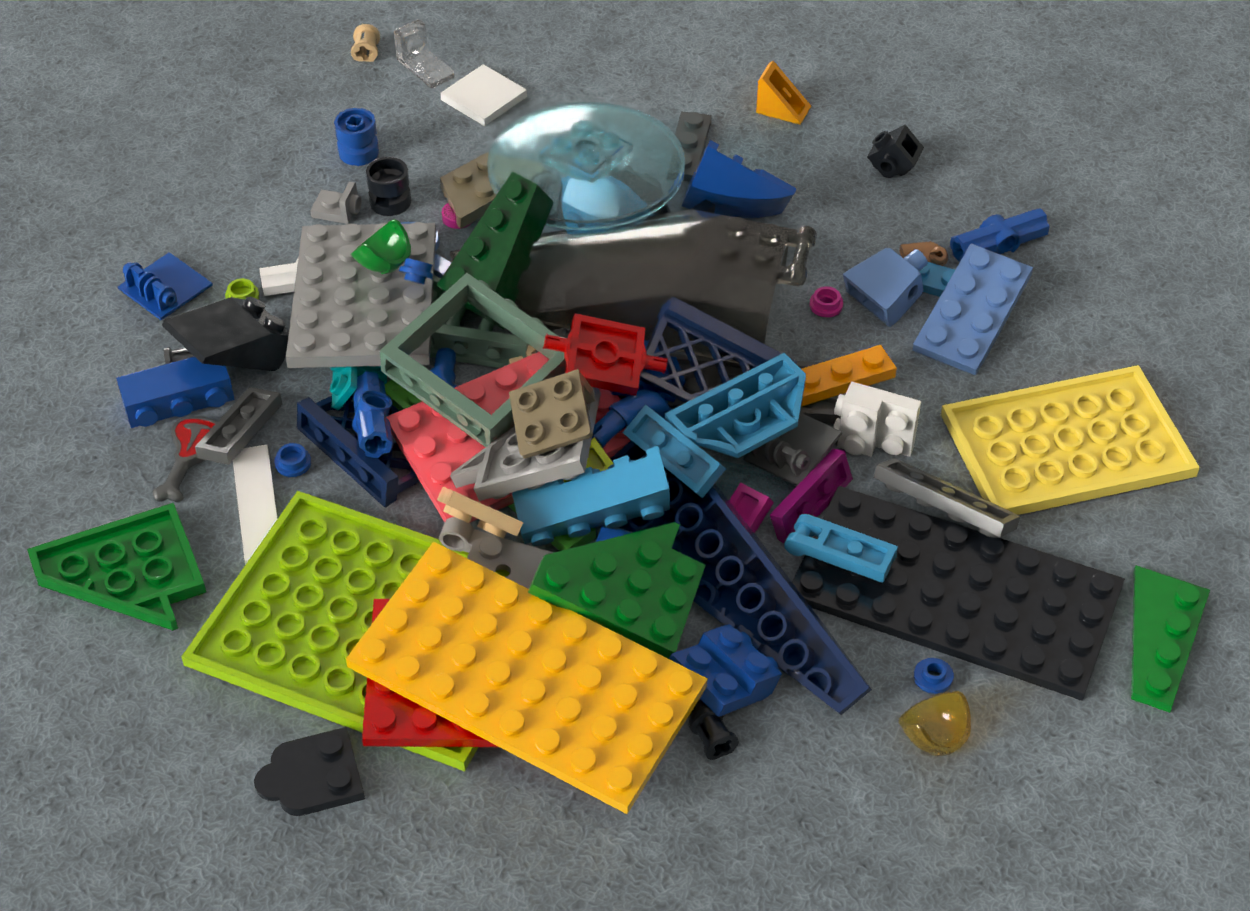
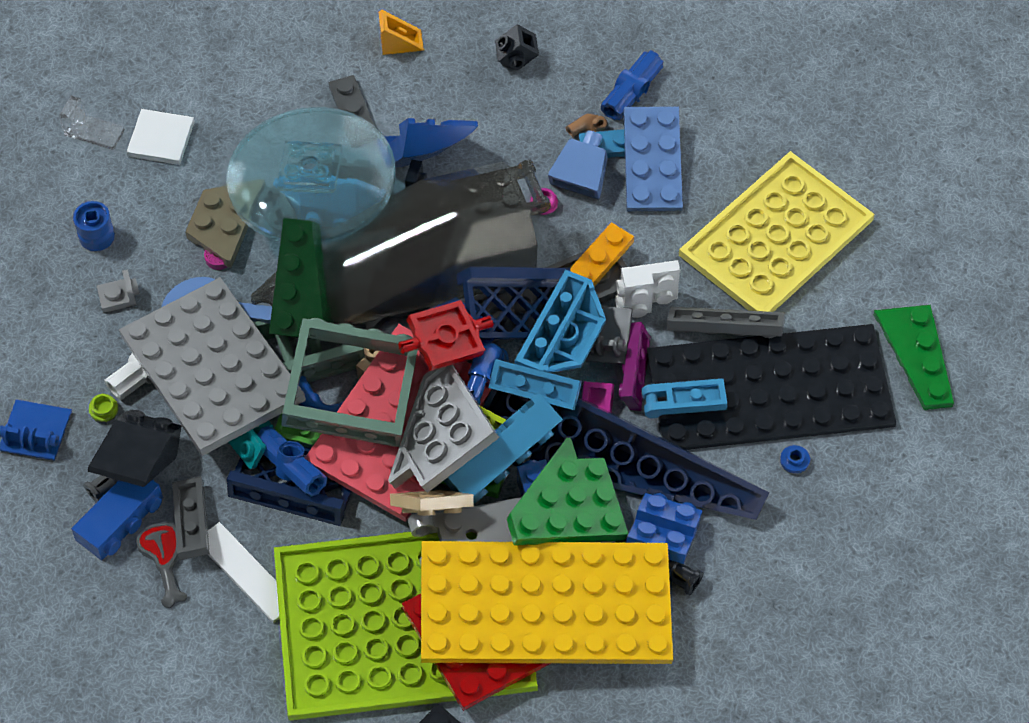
camera: 30 degrees left, 10 degrees up
(125, 566) = (189, 669): green wing -> none
(292, 460) = (247, 525): blue plate -> none
(369, 42) = (30, 133): tan bush -> none
(384, 249) = (211, 323): green helmet -> none
(388, 186) = (153, 259): black wheel -> none
(416, 271) = (250, 330): blue plate -> none
(552, 413) = (445, 404): dark tan bracket -> none
(939, 717) = (820, 492): clear yellow helmet -> none

